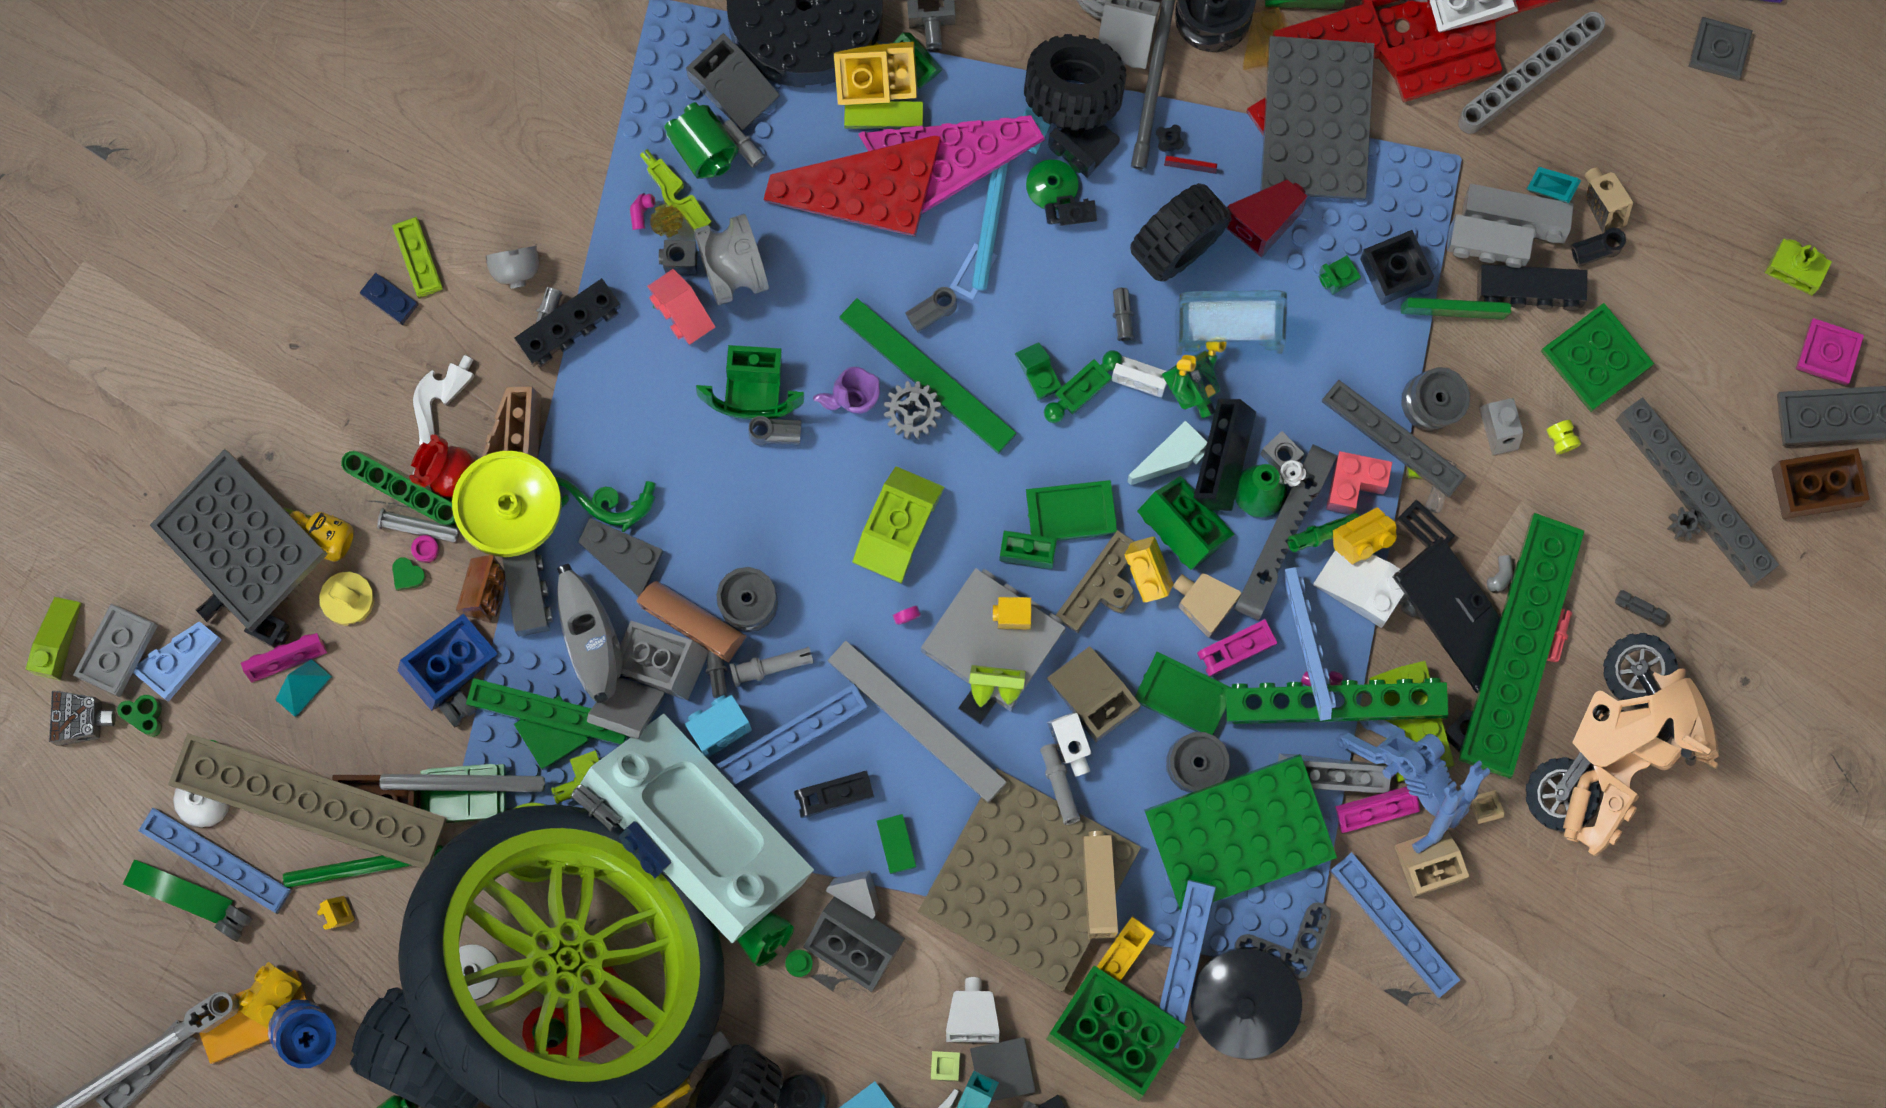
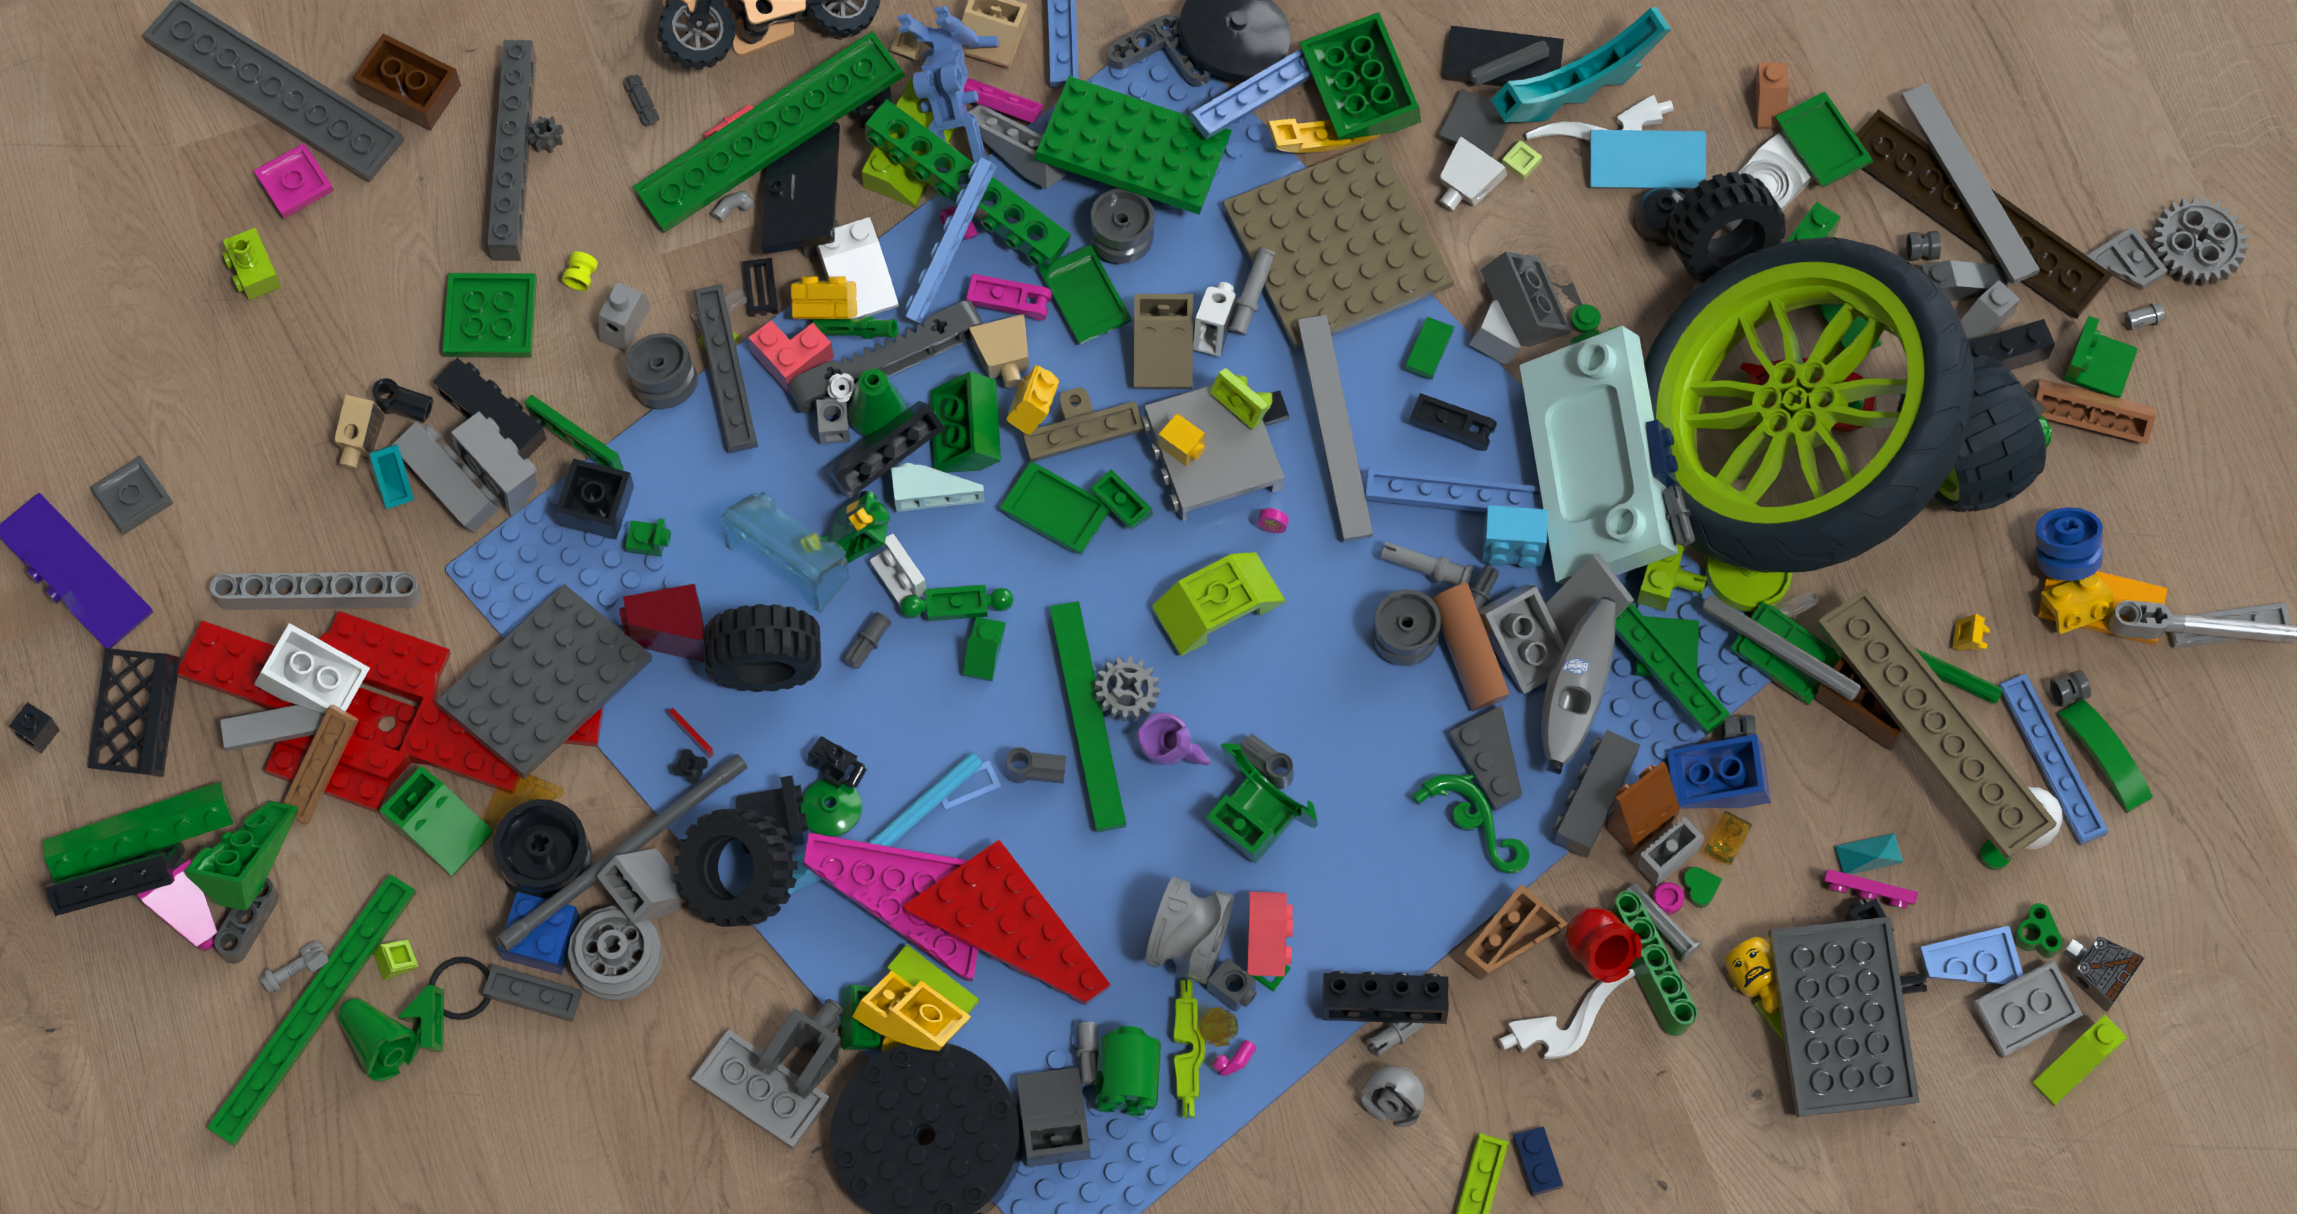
camera: 145 degrees left, 10 degrees down
(346, 598) = (1773, 903): light yellow tile -> none
(410, 618) = (1728, 838): none -> clear yellow bracket
(442, 576) = (1670, 851): none -> light grey brick
(506, 503) = (1567, 854): neon yellow dish -> none
(1099, 885) = (1288, 178): tan slope -> none

